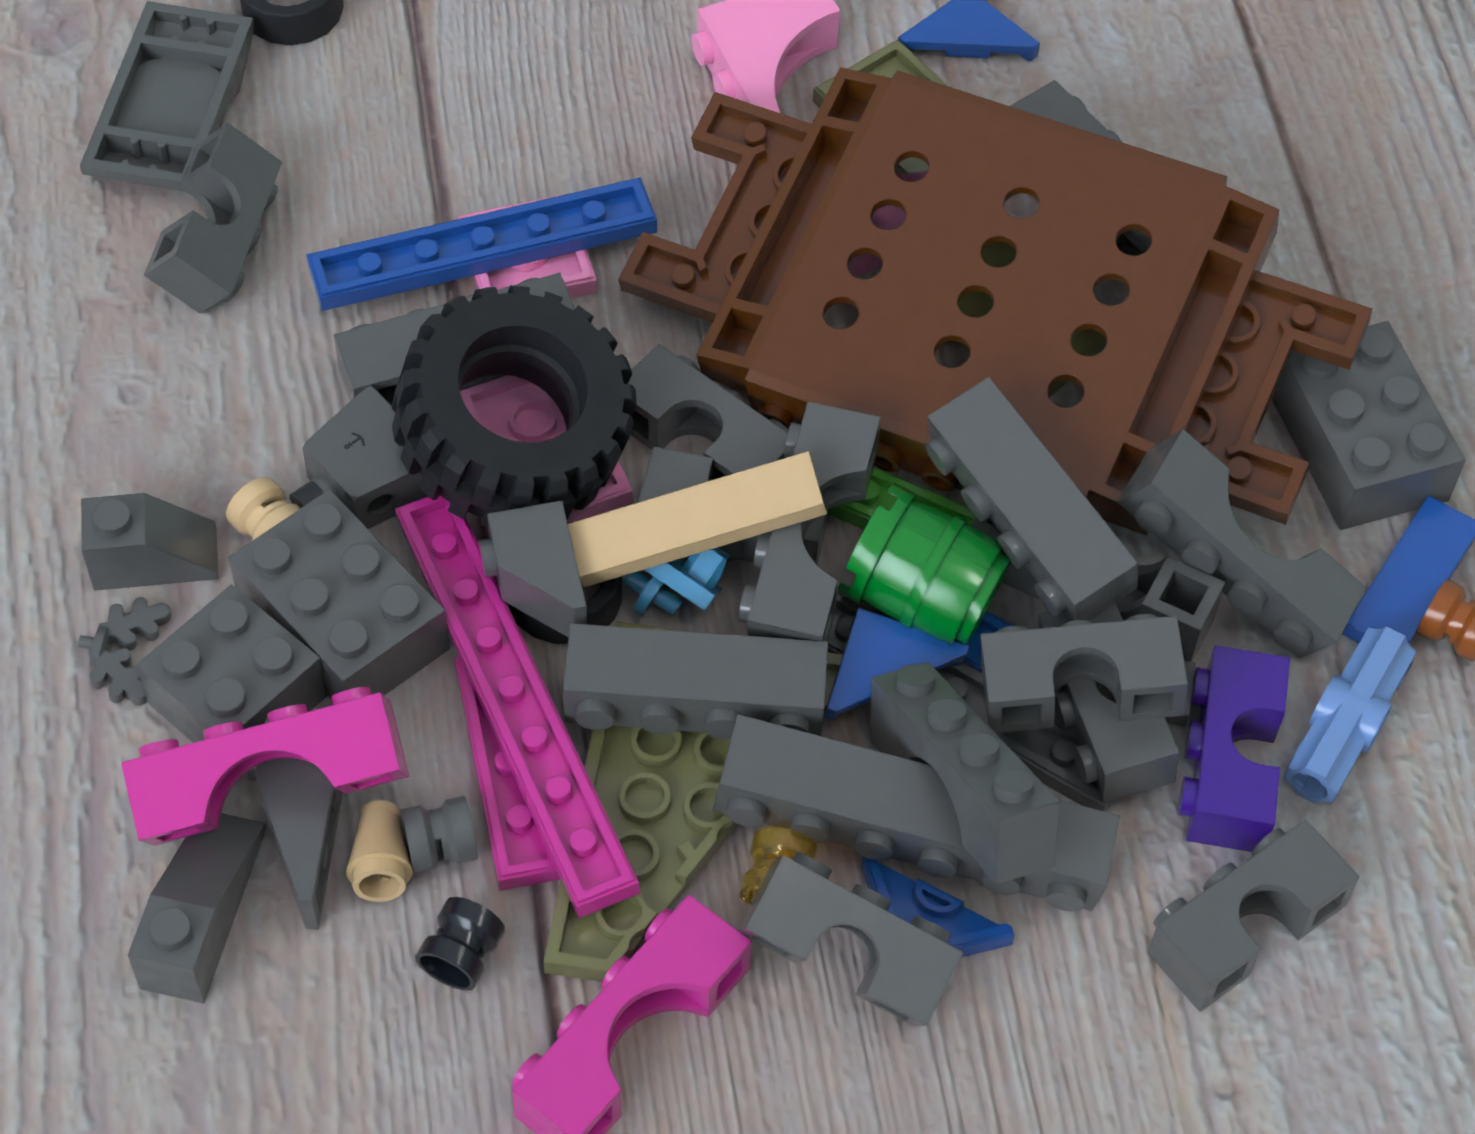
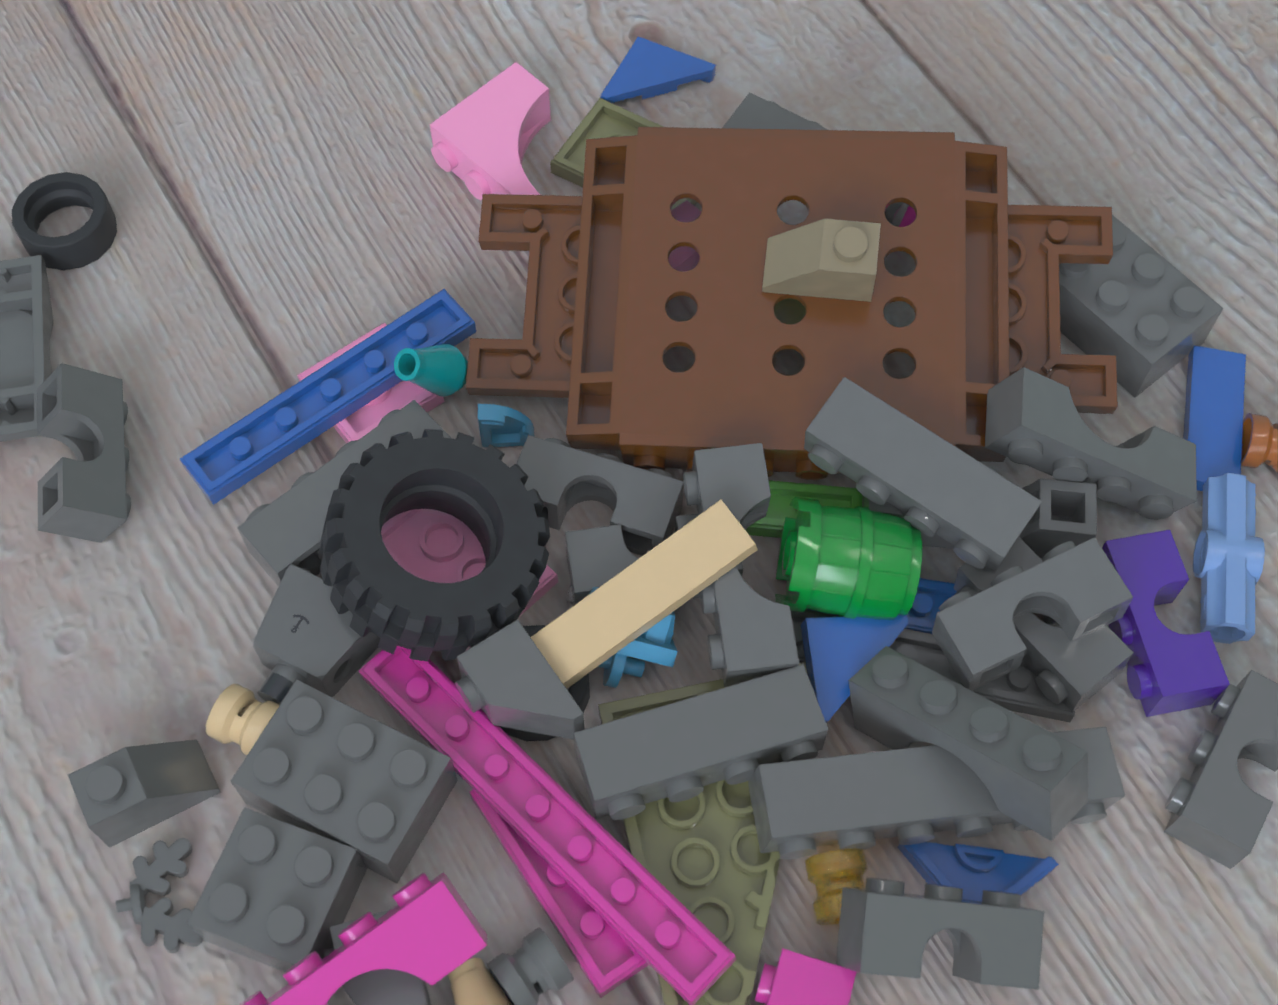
camera: 20 degrees left, 5 degrees up
(592, 249) = (433, 368): none -> teal cone
(640, 329) = (503, 426): none -> dark azure tile
(1028, 261) = (824, 260): none -> dark tan slope

